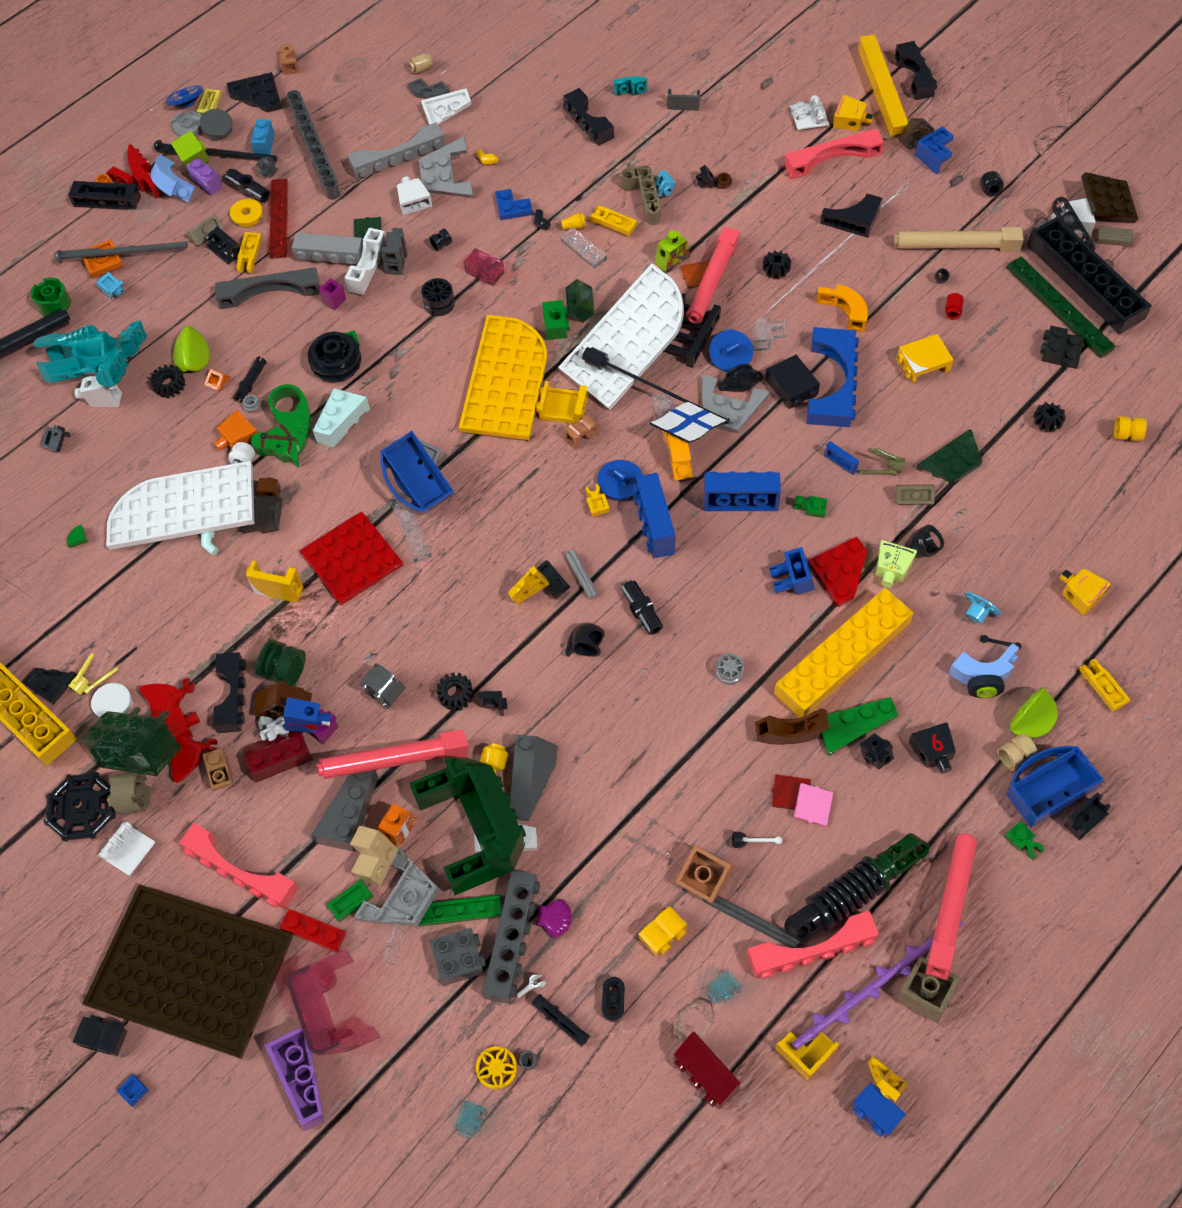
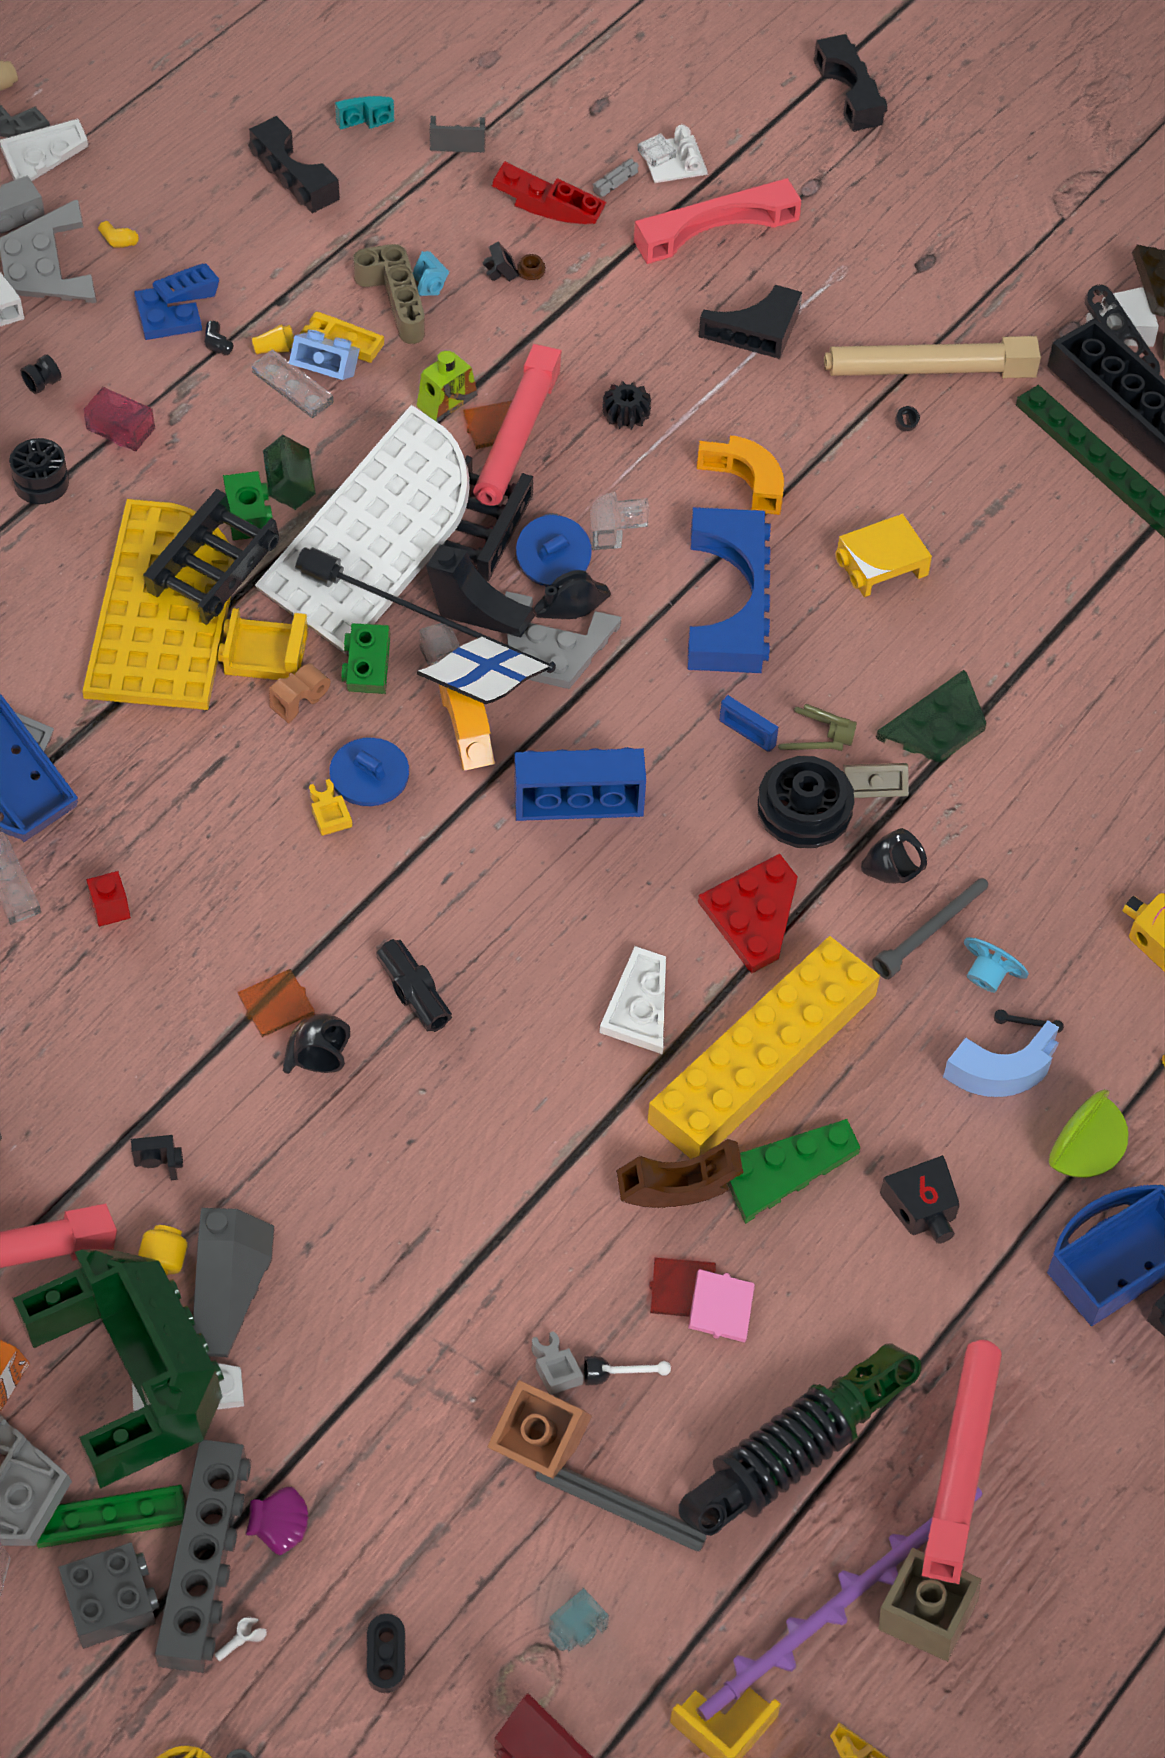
camera: 10 degrees left, 5 degrees down
(455, 702) = (85, 1124): black tyre -> none
(469, 550) = (108, 898): none -> red brick
(526, 188) = (197, 281): none -> blue slope
(527, 336) = (199, 533): none -> black fence
(528, 585) = (214, 954): yellow wing -> none
(557, 585) = (254, 943): black plate -> none
(562, 1021) = (293, 1693): black pin -> none
(563, 614) = (276, 1003): none -> clear orange piece
(581, 574) = (307, 933): light grey axle -> none
(601, 231) = (323, 355): none -> light blue brick
(621, 413) = (367, 659): none -> green brick
(654, 515) = (430, 828): blue brick -> none
(663, 931) = (469, 1532): yellow brick -> none
(682, 379) = (469, 598): none -> black arch
(716, 837) = (556, 1368): none -> light grey plate
(729, 669) = (570, 1084): light grey wheel -> none
(733, 139) = (554, 201): none -> red slope
(771, 622) = (638, 1002): none -> white wing
(771, 958) = (660, 1567): coral arch -> none
(775, 126) = (615, 177): none -> light grey axle
(792, 381) = (660, 599): black brick -> none
(798, 568) = (681, 908): blue brick -> none
(814, 505) = (705, 805): green plate -> none
(851, 114) = (744, 156): yellow torso -> none
(875, 497) = (809, 788): none -> black wheel
(876, 751) = (826, 1209): black brick -> none
(882, 85) = (796, 109): yellow tile -> none
(893, 562) = (844, 895): yellowish green torso -> none
(914, 131) = (854, 184): clear smoke slope -> none
(919, 603) = (889, 962): none -> dark grey piece
(932, 149) = (883, 213): blue panel -> none
(954, 306) = (929, 468): red brick -> none
(986, 686) = (1006, 1093): black wheel -> none
(991, 183) = (984, 266): black head -> none
(1017, 752) = (1060, 1203): tan wheel -> none
(1022, 838) = (1078, 1345): green plate -> none
(1049, 416) = (1095, 646): black gear -> none
(1061, 347) = (1111, 532): pearl dark grey plate -> none

